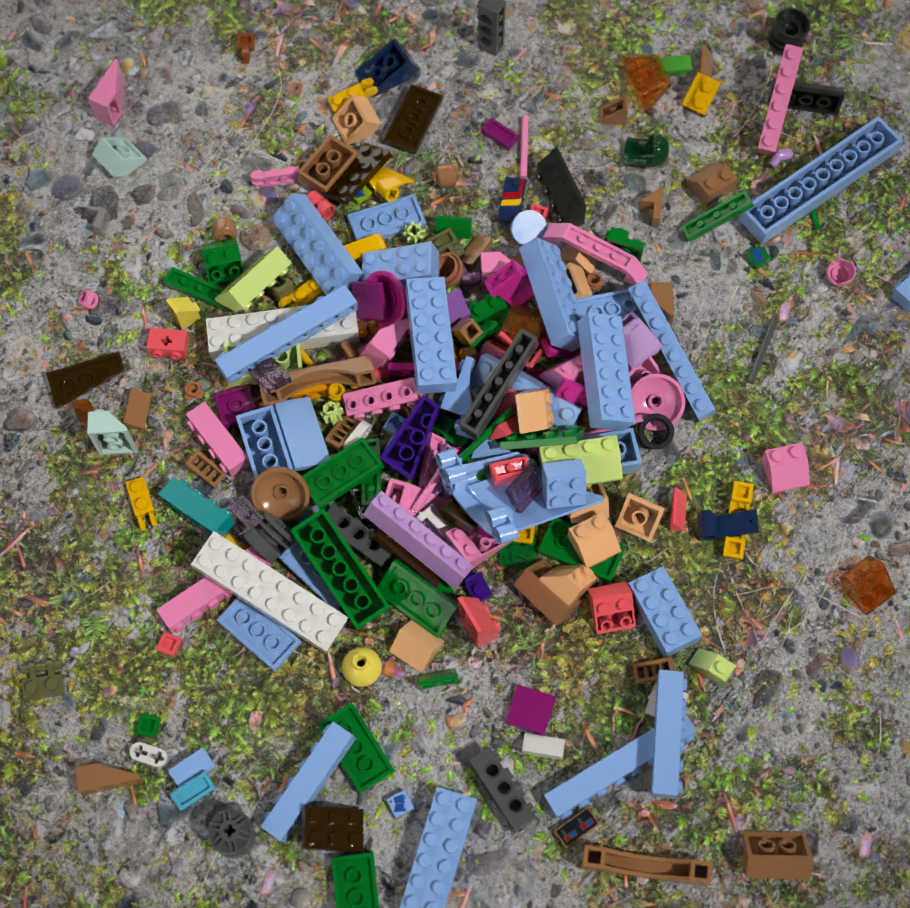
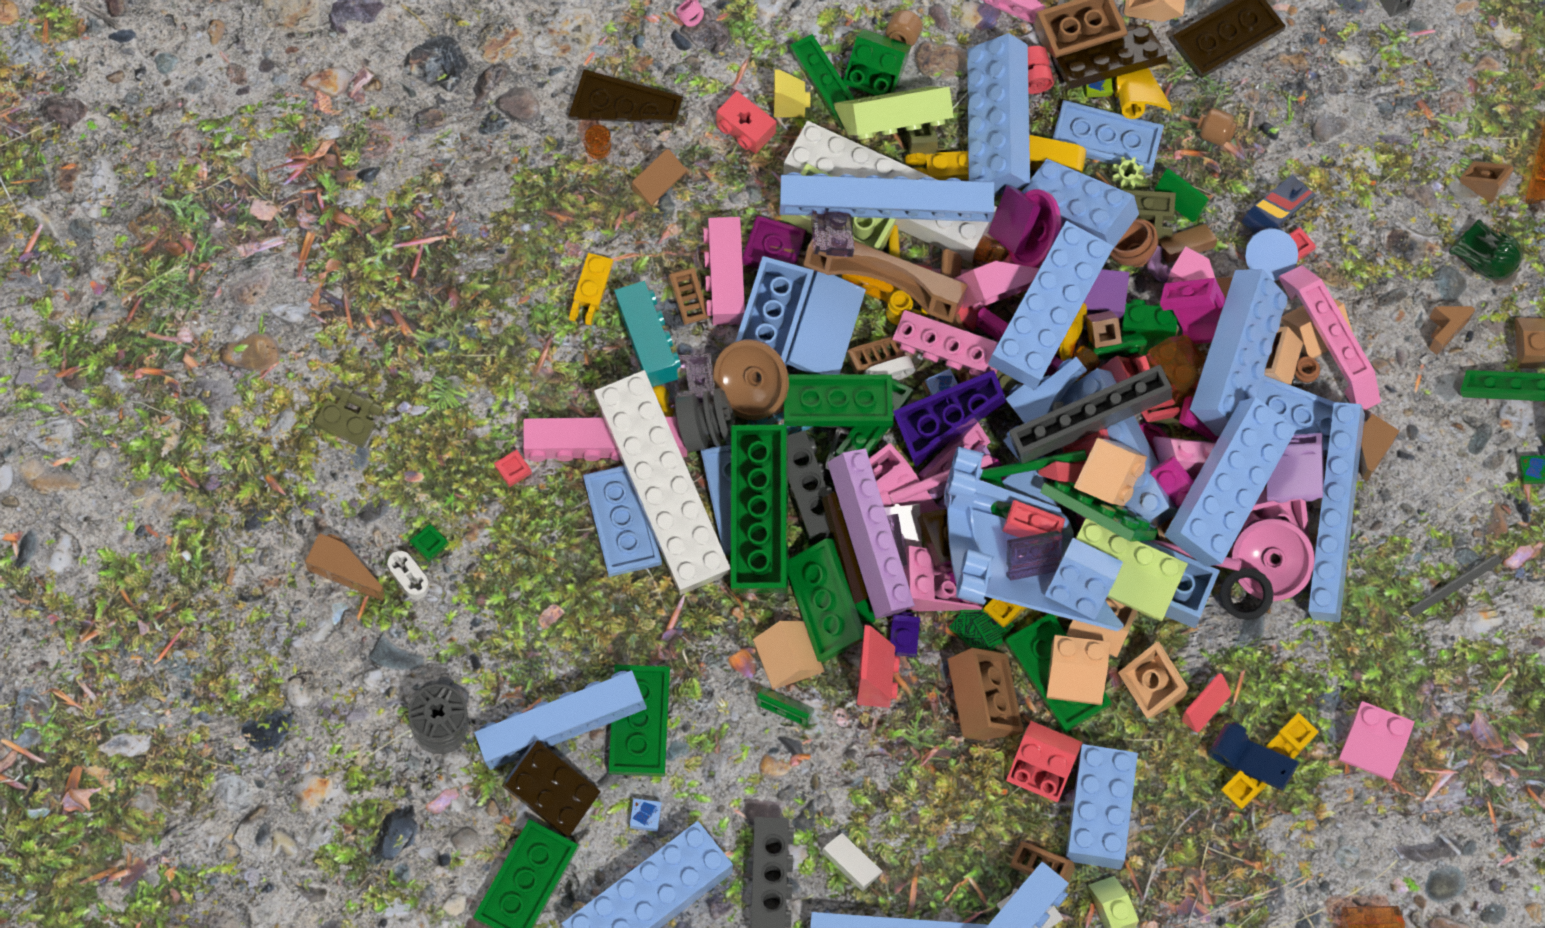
camera: 30 degrees right, 0 degrees up
(109, 434) = (604, 185): light aqua slope -> none
(188, 387) = (737, 189): nougat plate -> none
(191, 767) = (444, 620): light blue slope -> none
(192, 790) = (429, 645): medium azure tile -> none
(332, 412) = (879, 324): yellowish green gear -> none
(363, 675) = (712, 646): light yellow piece -> none
(445, 428) = (997, 426): green slope -> none
(500, 134) = (1323, 117): magenta tile -> none
(524, 147) = (1341, 152): bright pink bar -> none
(530, 710) = (866, 812): magenta tile -> none
(561, 189) = (1344, 233): pearl dark grey slope -> none
(569, 581) = (1013, 698): light nougat slope -> none
(619, 238) = (1371, 337): green plate -> none

